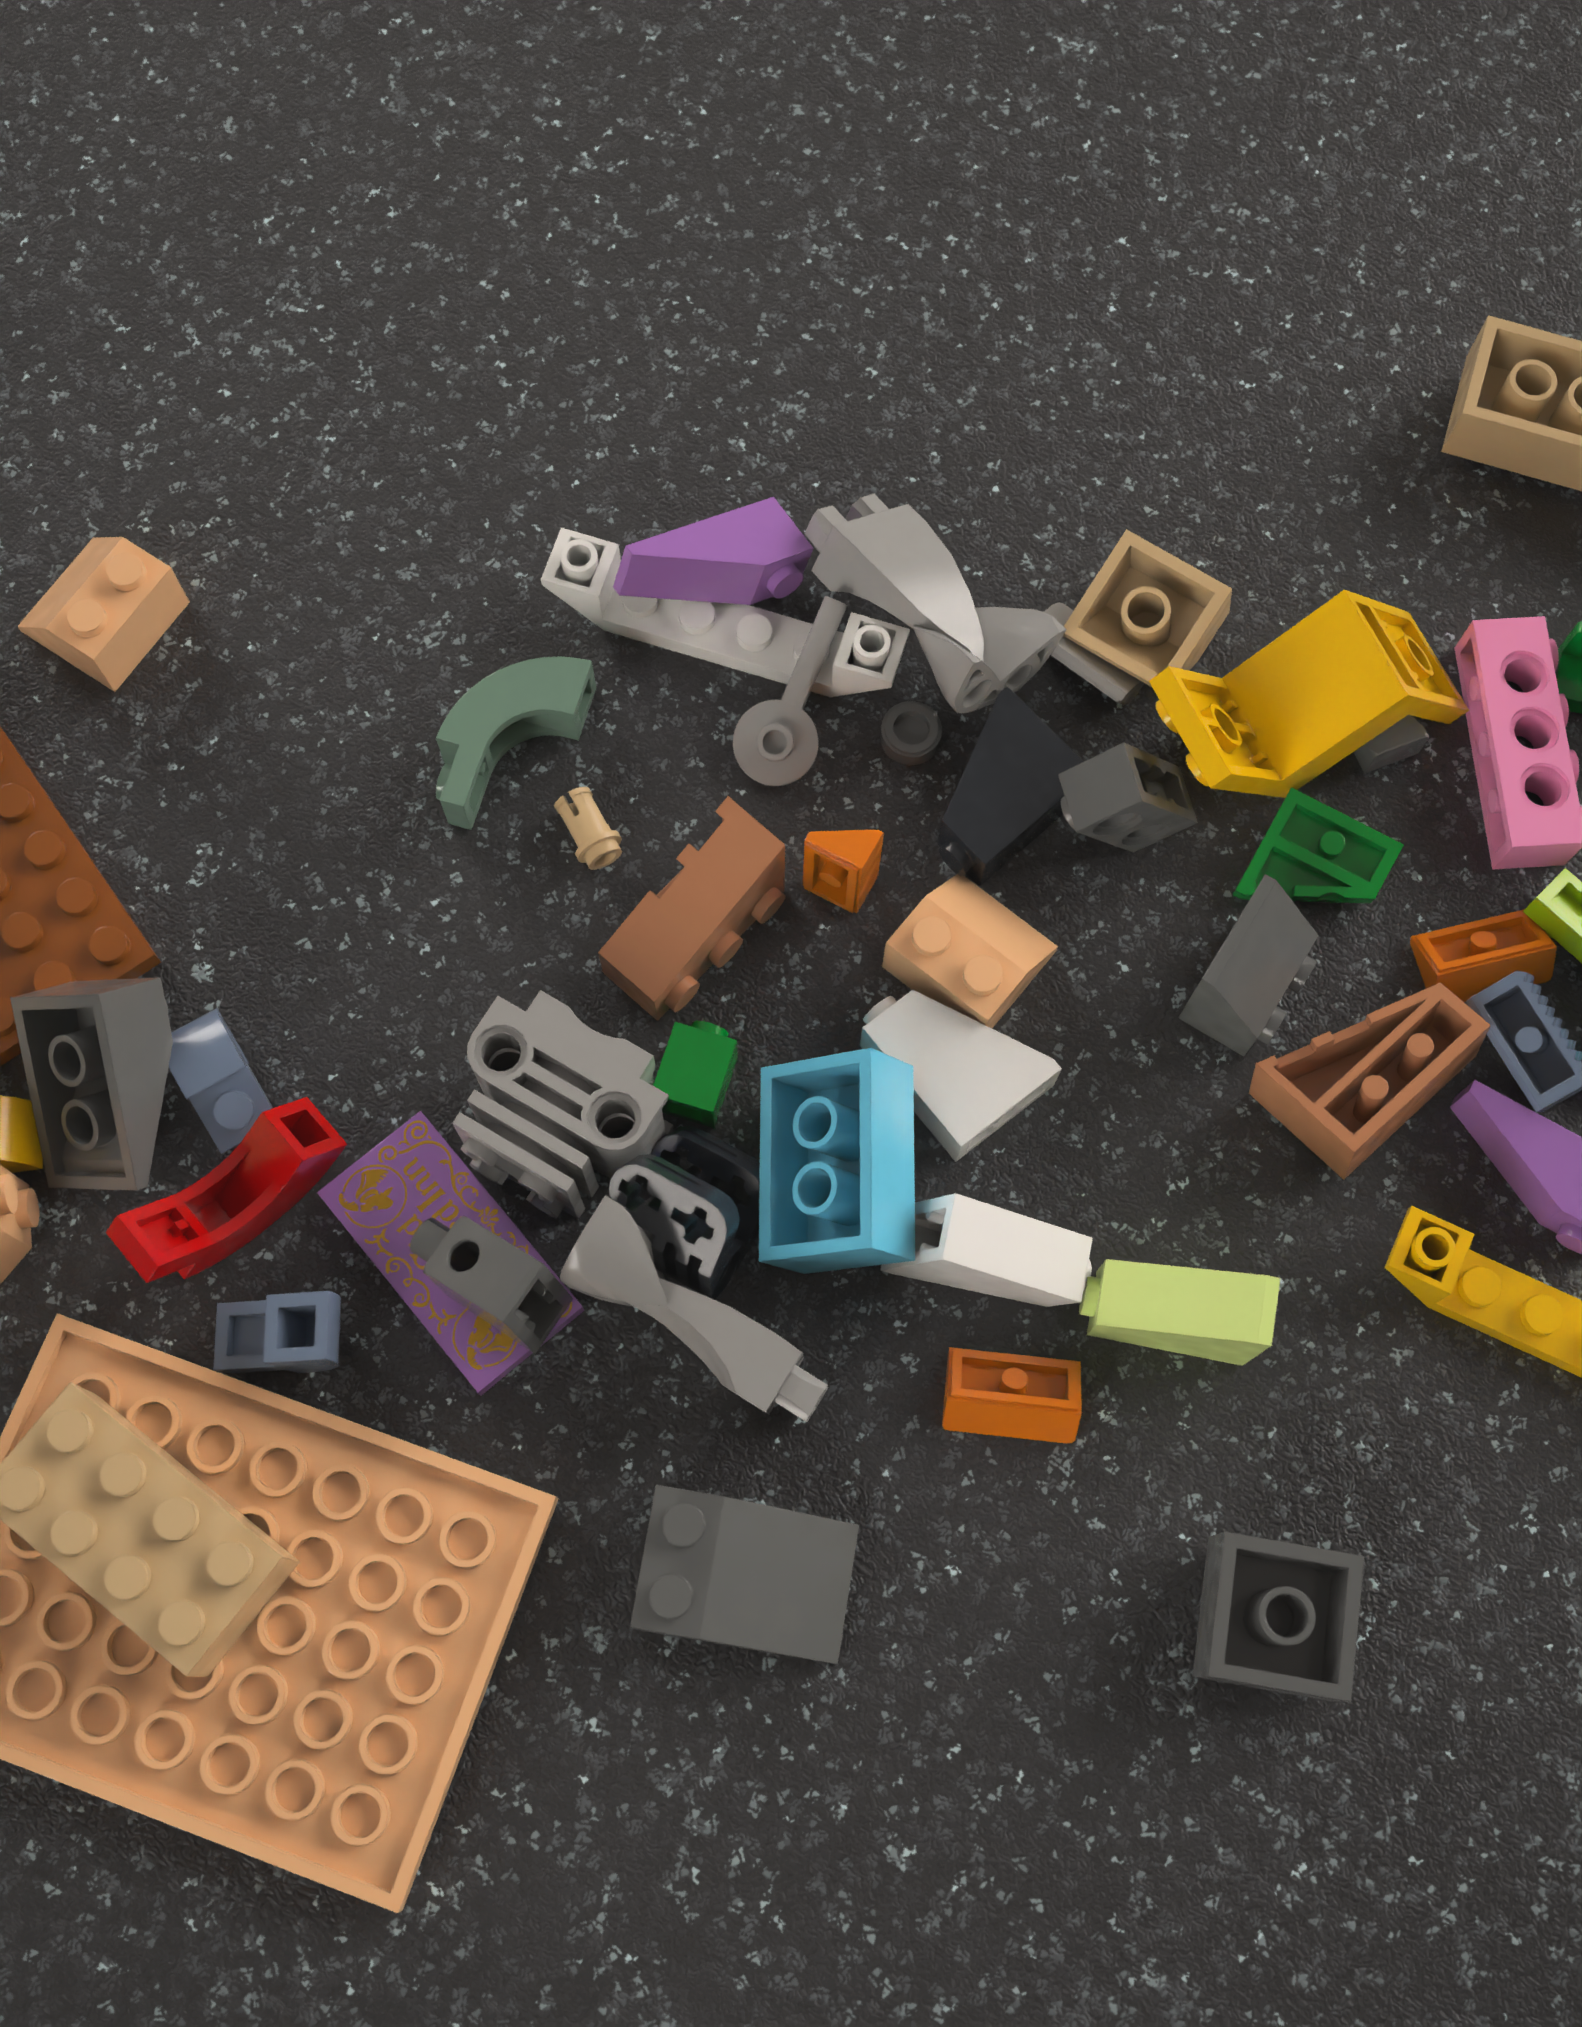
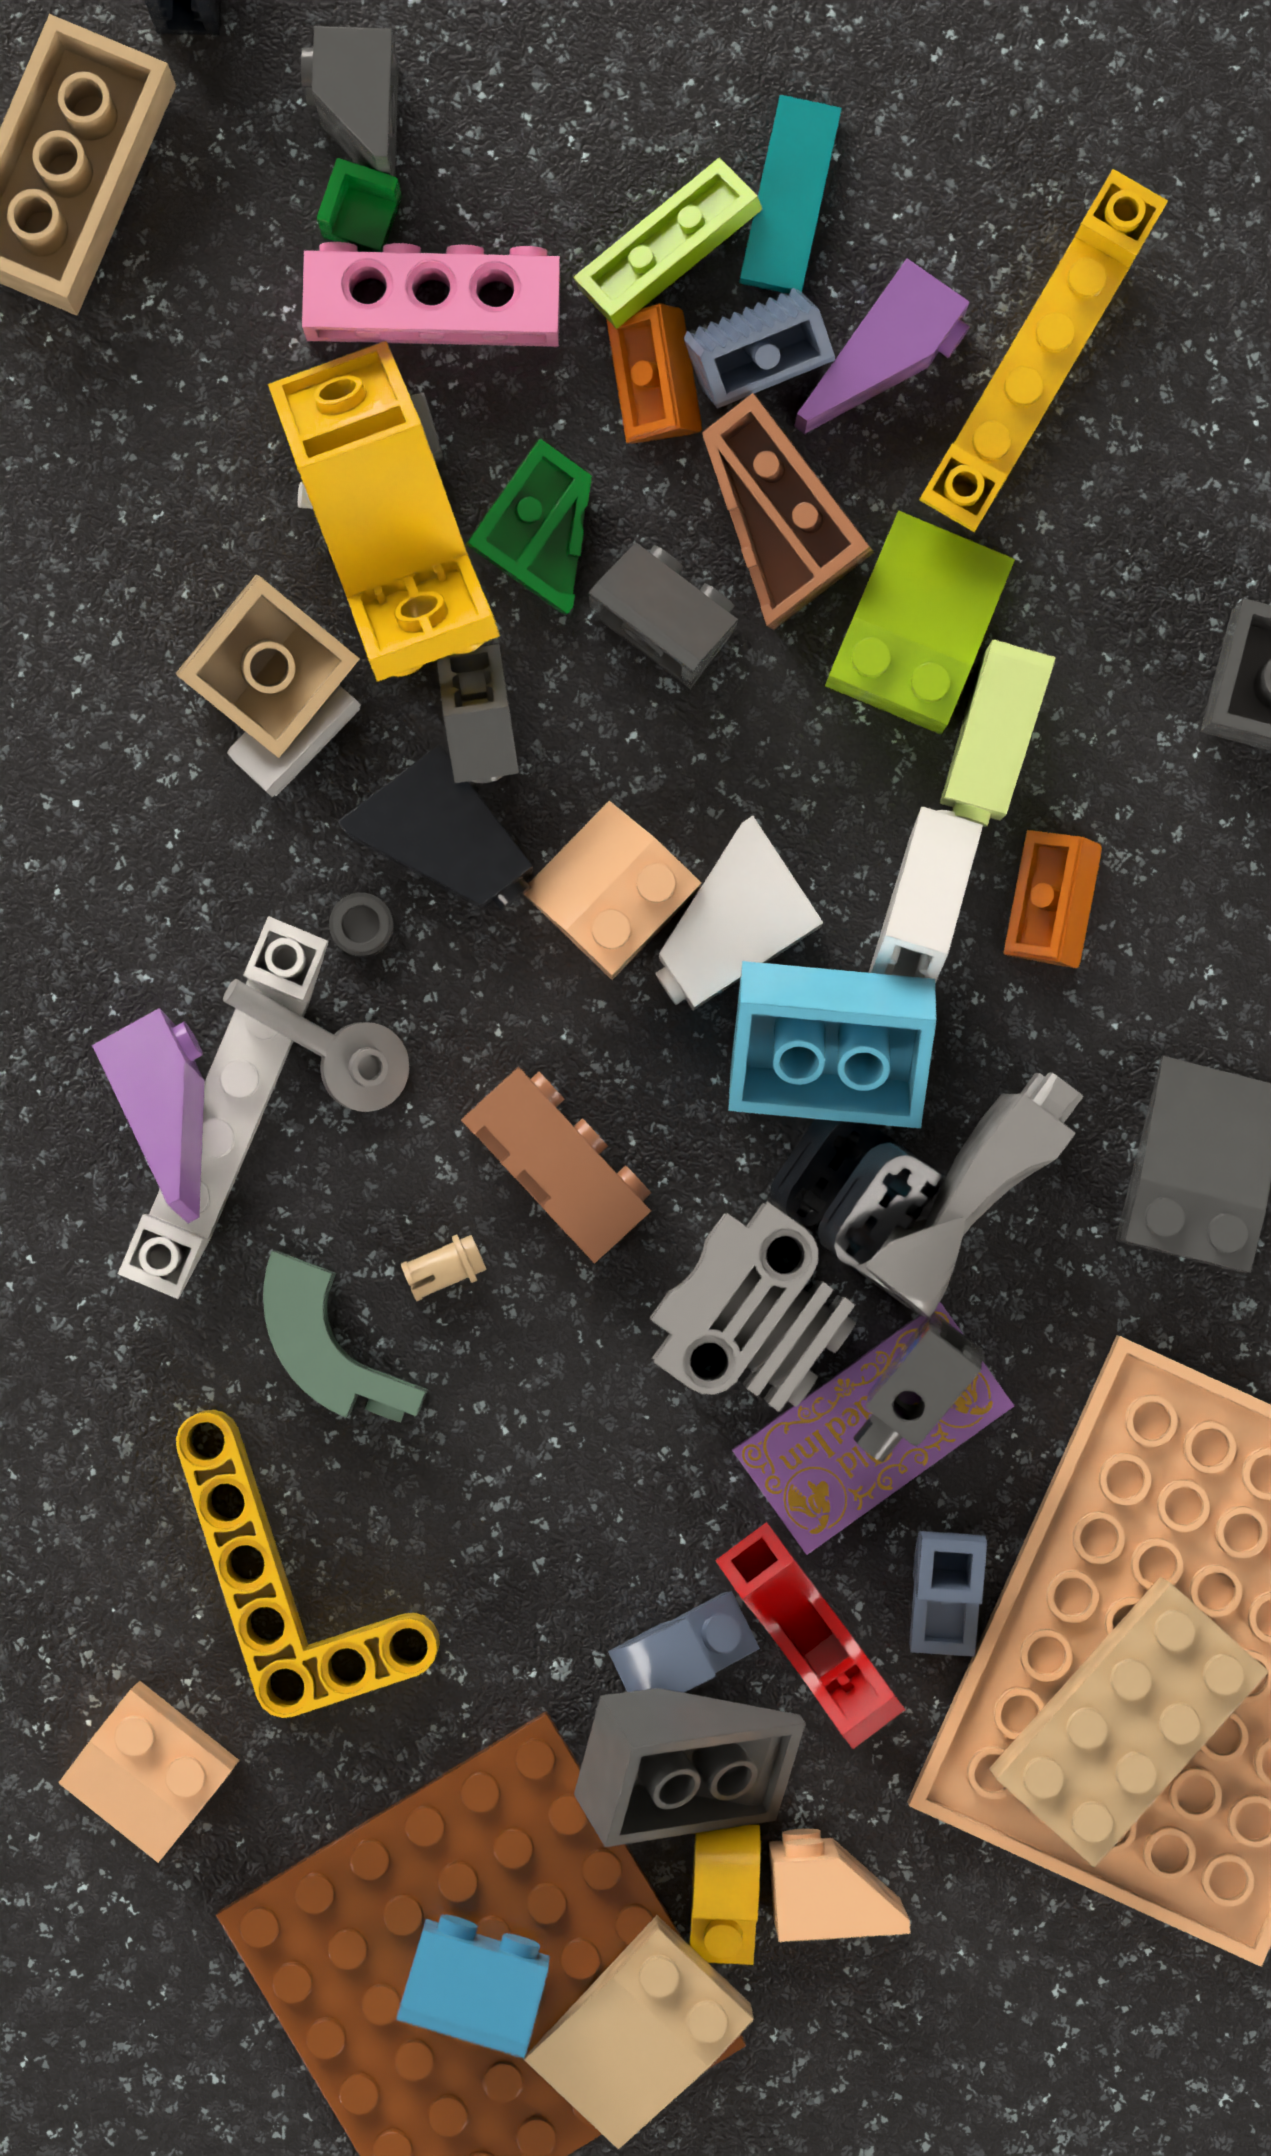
camera: 90 degrees left, 15 degrees up
(276, 700) = (273, 1590): none -> yellow beam
(697, 1071) = (717, 1175): green brick -> none
(842, 865) = (526, 1009): orange slope -> none
(911, 574) = (207, 907): light grey hips -> none
(1283, 1219) = (920, 623): none -> lime slope

